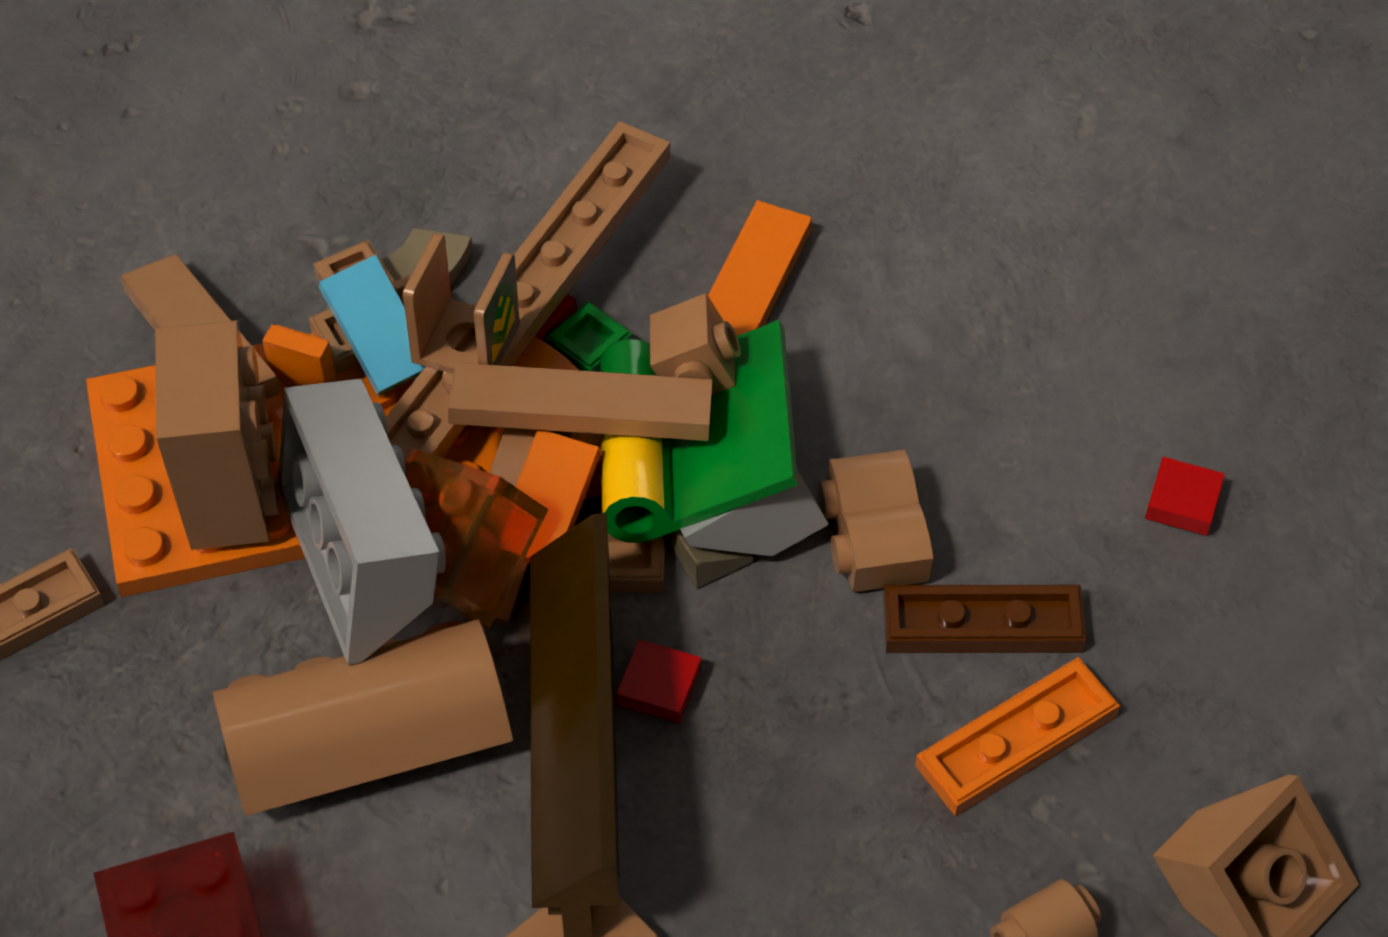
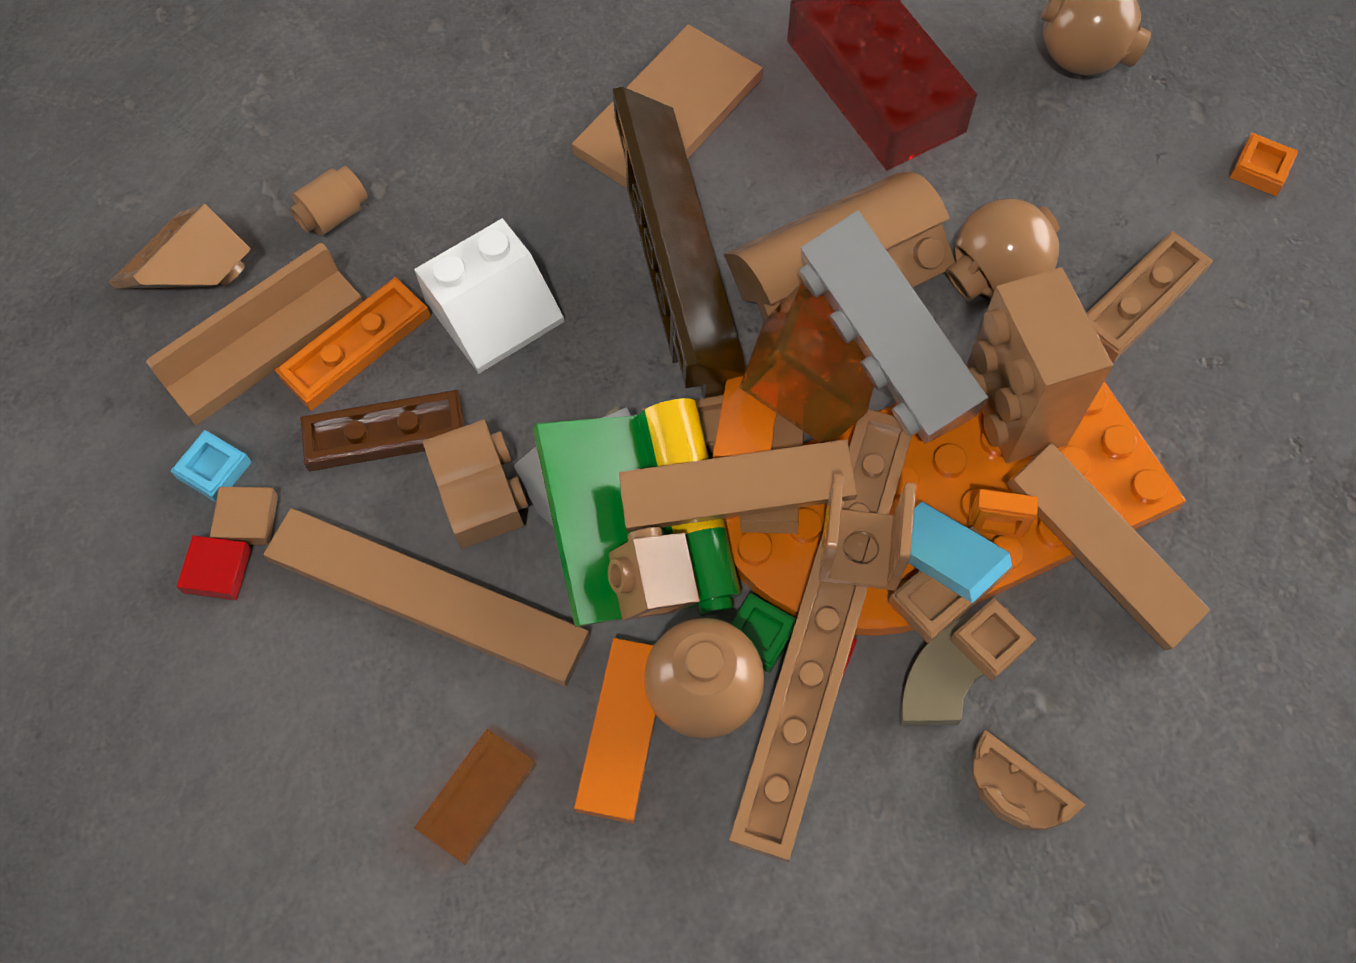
camera: 170 degrees right, 10 degrees up
(152, 675) = (1002, 245): none -> medium nougat brick
(379, 178) = (1018, 789): none -> medium nougat tile
(659, 258) = (704, 678): none -> medium nougat brick
(659, 681) = (629, 334): red tile -> none
(836, 752) = (489, 295): none -> white slope
(907, 251) = (475, 796): none -> clear orange tile
(952, 434) = (428, 597): none -> medium nougat tile
(1136, 752) = (254, 334): none -> medium nougat panel
(1152, 545) = (245, 514): none -> medium nougat tile
(1196, 611) = (210, 465): none -> medium azure tile

